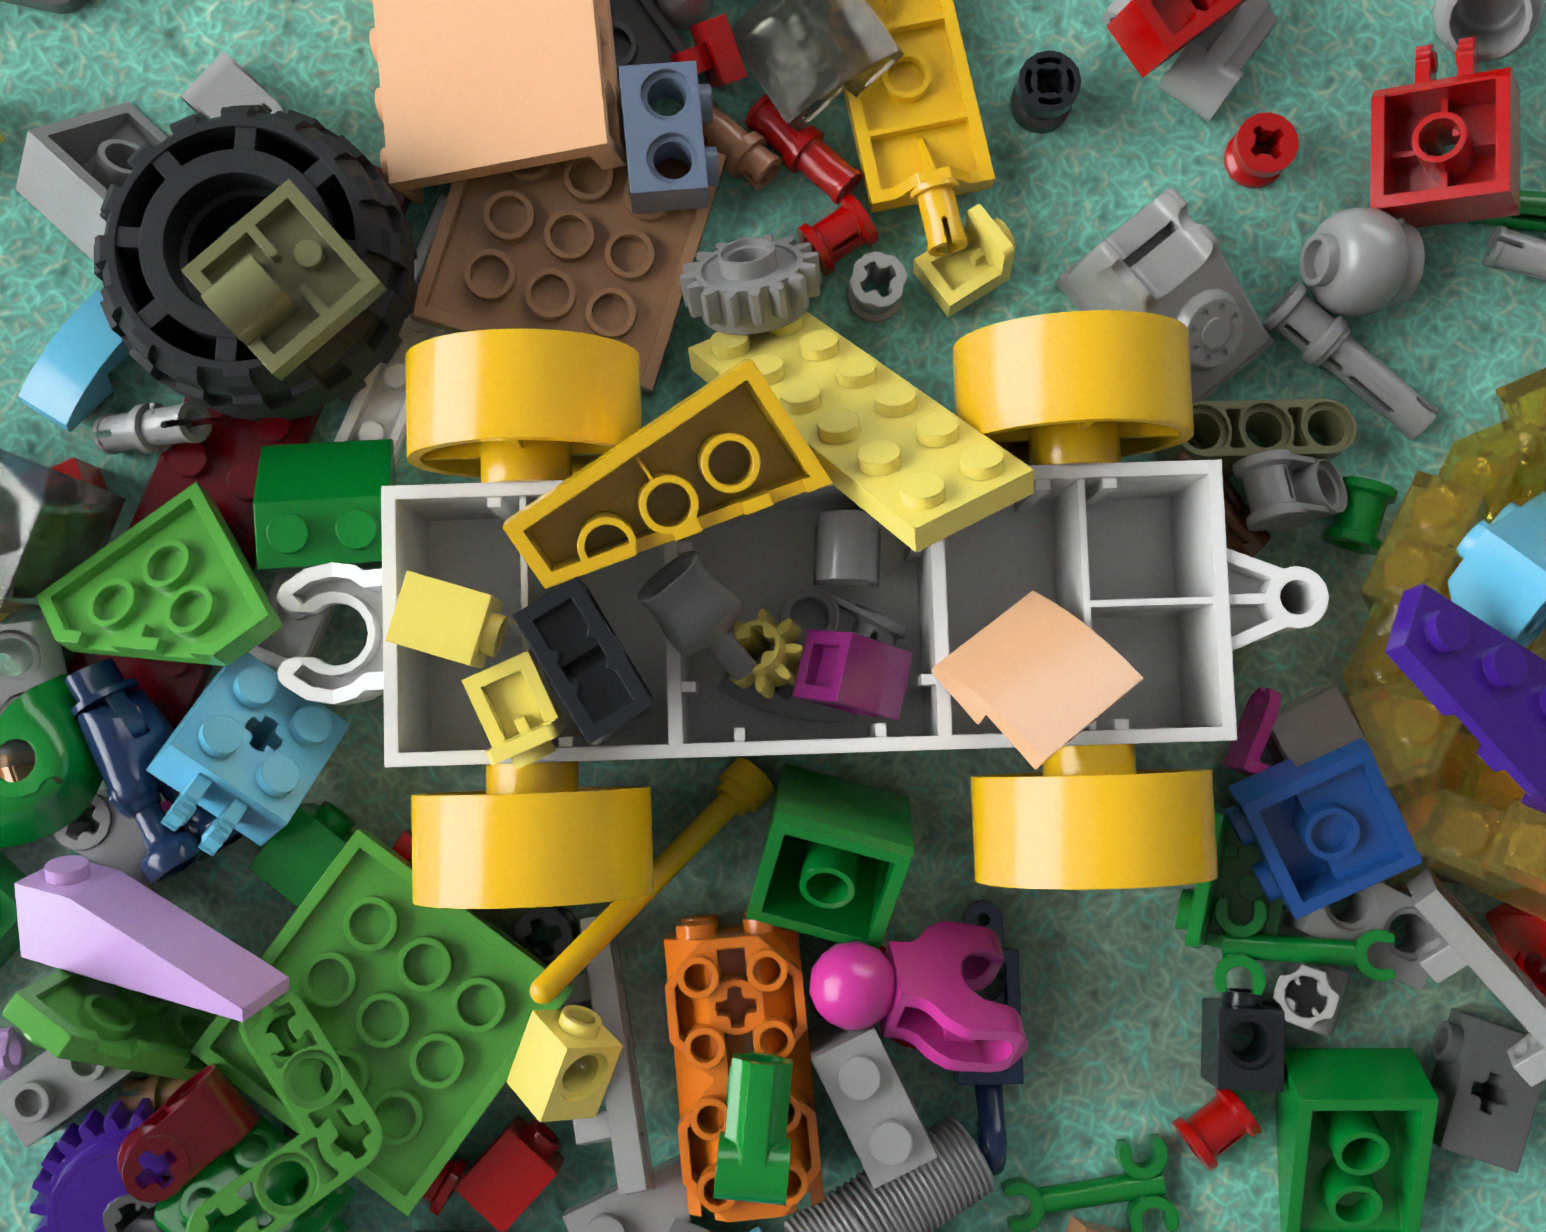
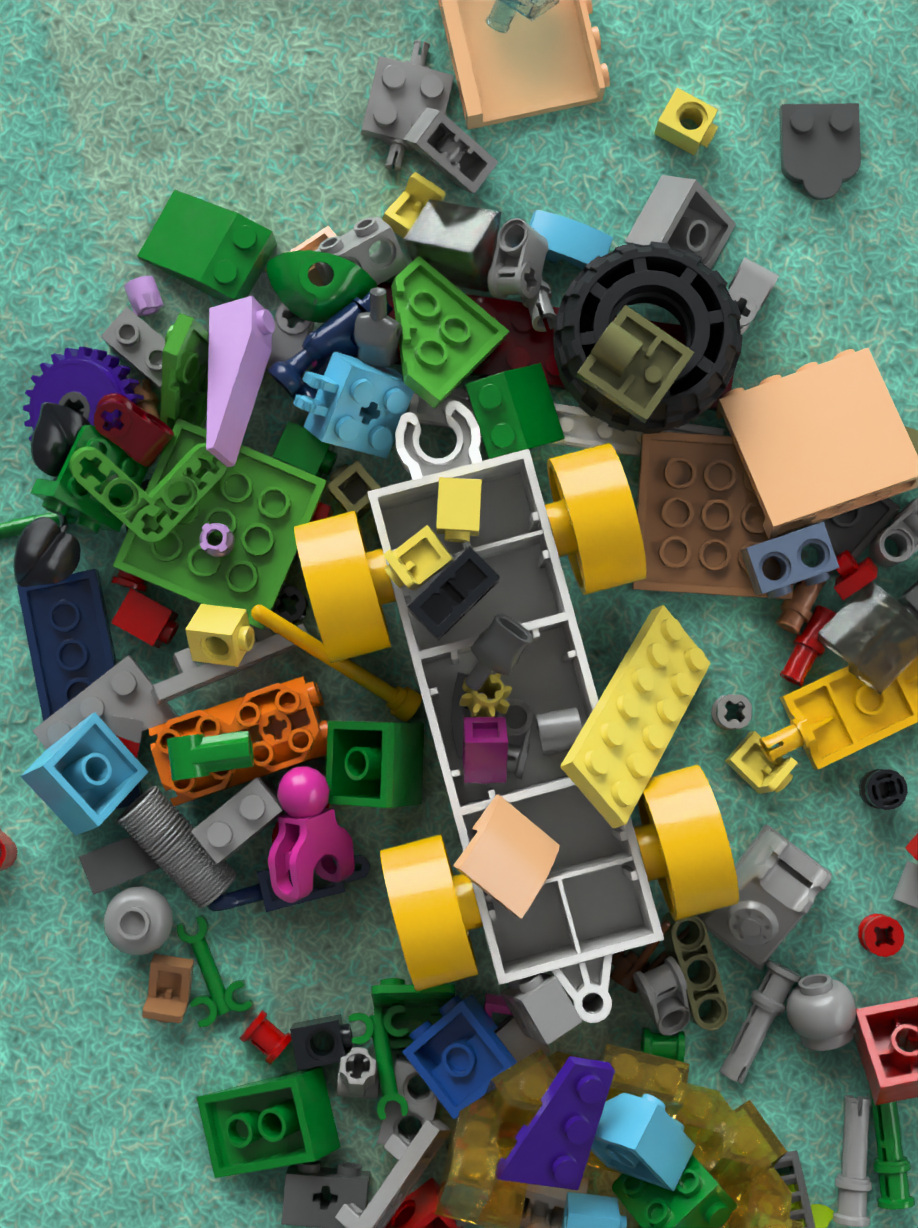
camera: 75 degrees right, 0 degrees up
(80, 439) = (519, 259): none -> light grey piece
(133, 690) = (377, 333): none -> dark grey piece
(382, 794) = (350, 488): none -> olive brick
(420, 1022) = (224, 547): none -> lavender hose
(685, 471) = (573, 618): yellow wedge -> none
(751, 284) = (712, 634): light grey gear -> none
(839, 233) = (759, 680): red bush -> none
(1286, 679) = (541, 1007): none -> light grey brick

